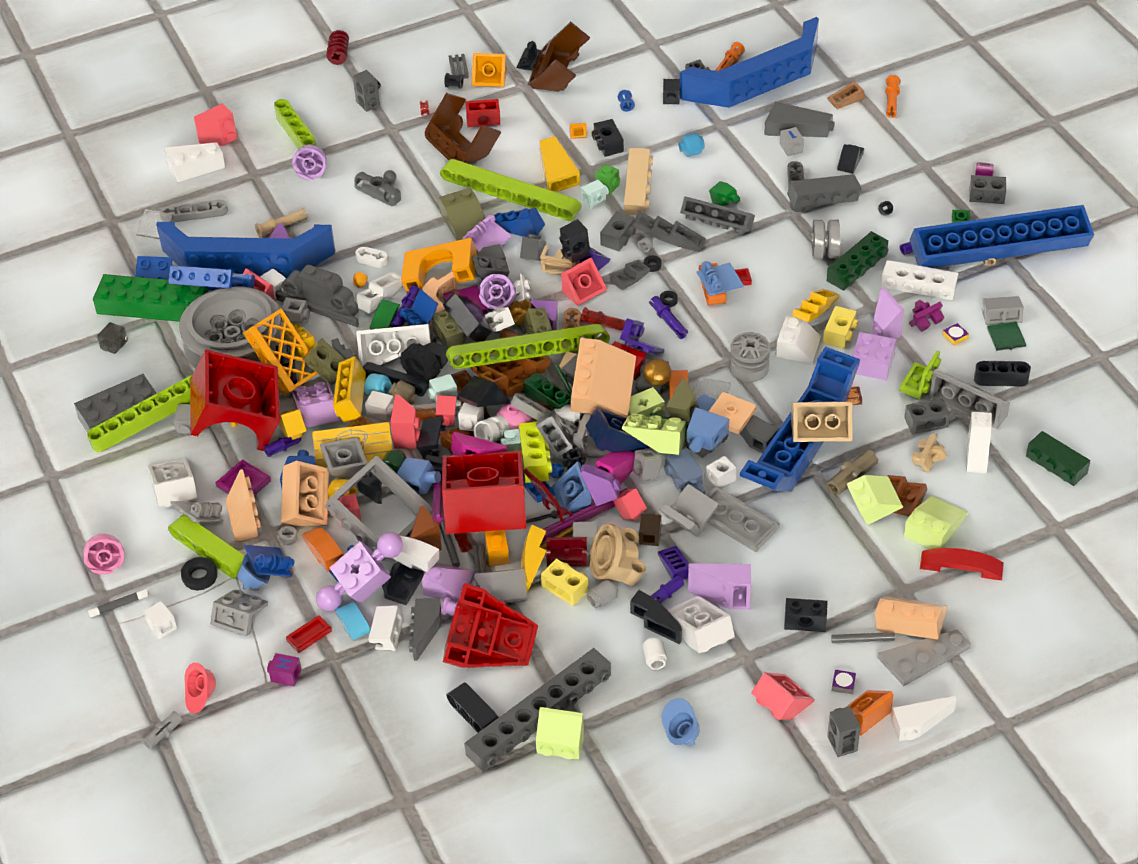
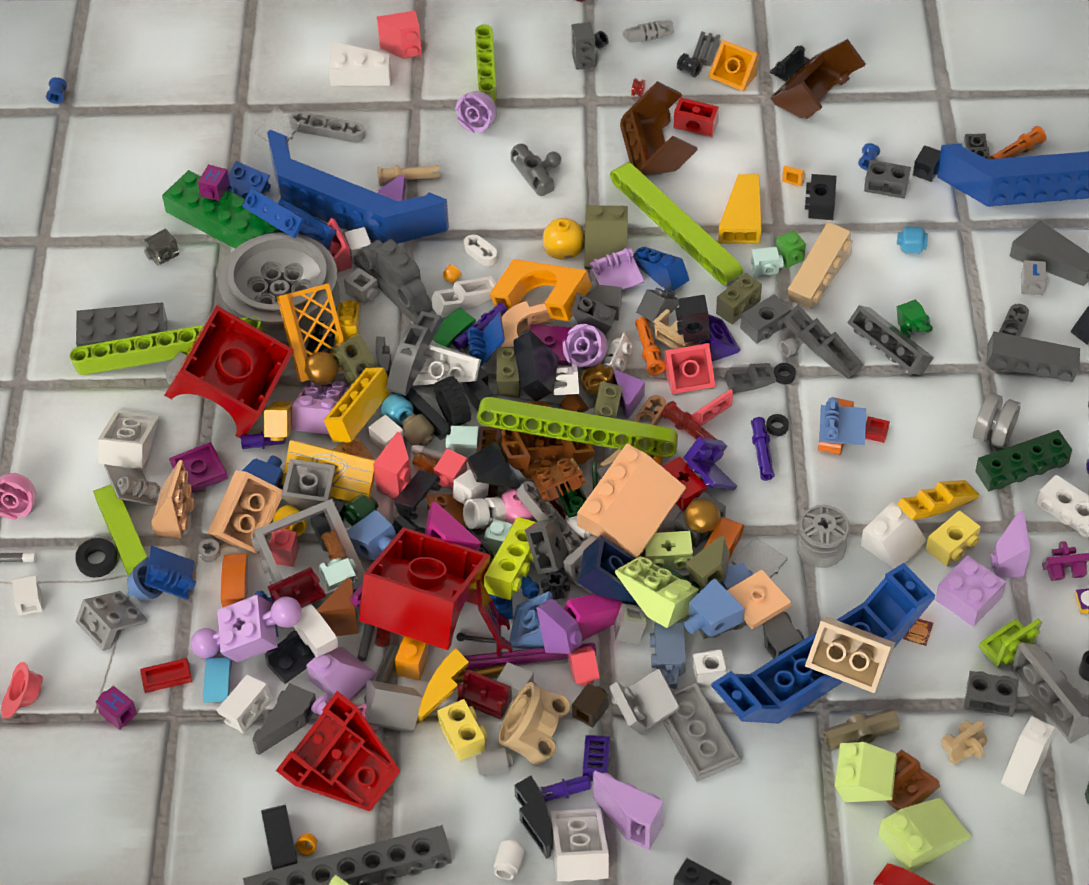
camera: 25 degrees right, 5 degrees up
(134, 273) = (213, 182): none -> magenta brick
(302, 375) = (321, 368): none -> pearl gold hair
(371, 338) = (410, 352): none -> dark grey slope
(387, 522) = (301, 586): none -> dark red hinge
(395, 489) = (333, 545): none -> clear orange pin
(407, 507) = (337, 572): none -> light aqua brick
(408, 67) = (649, 31): none -> light grey hinge
(431, 227) = (563, 238): none -> yellow cylinder
(500, 702) = (302, 842): none -> light orange hinge
(538, 383) = (548, 478): none -> dark orange hinge
(546, 281) = (651, 352): none -> orange pin
(593, 220) = (738, 298): none -> olive brick
(616, 302) = (713, 408): none -> coral slope
(648, 110) = (887, 179): none -> dark grey brick

